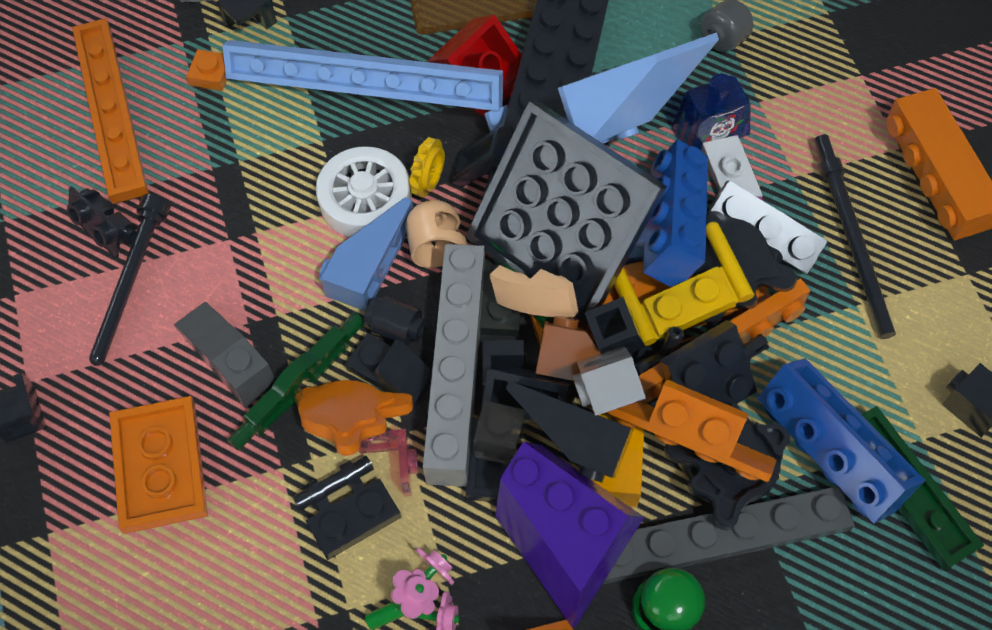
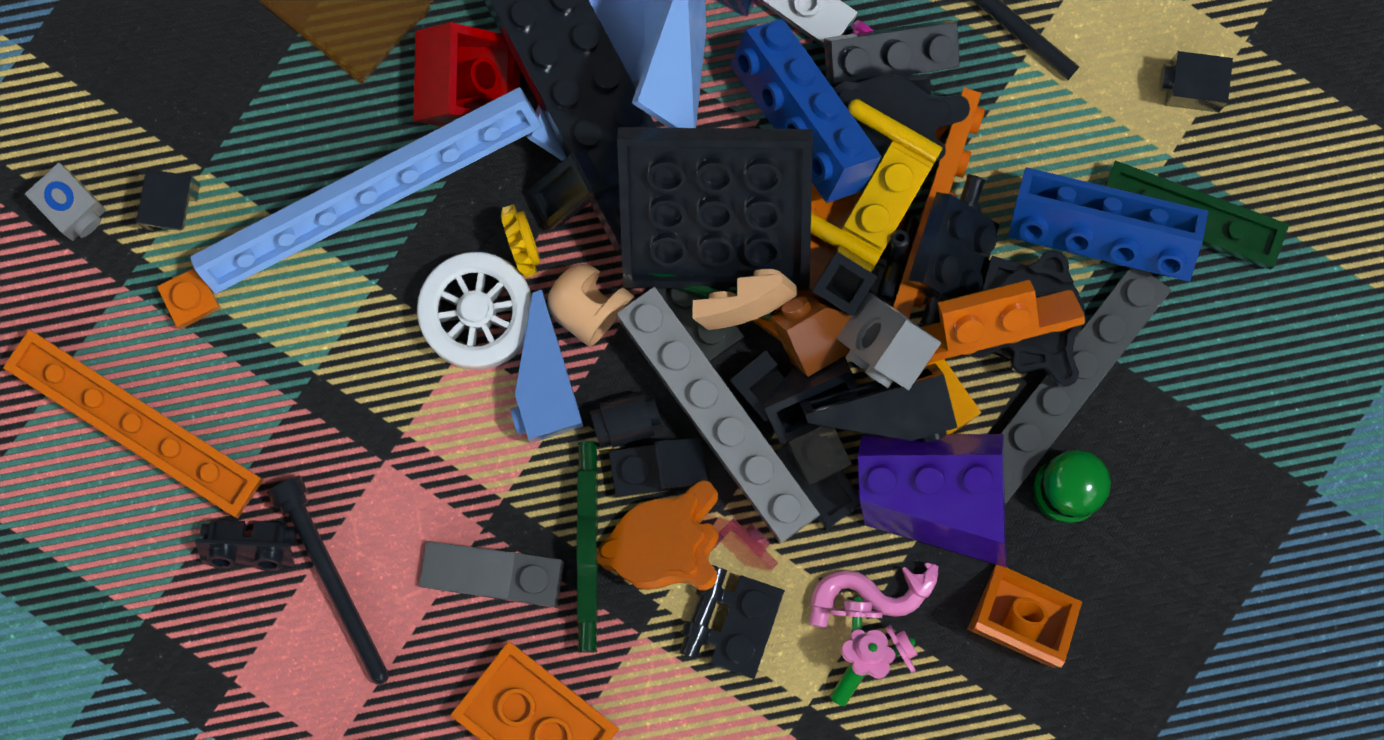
camera: 40 degrees left, 20 degrees up
(426, 539) = (829, 586): none -> bright pink animal

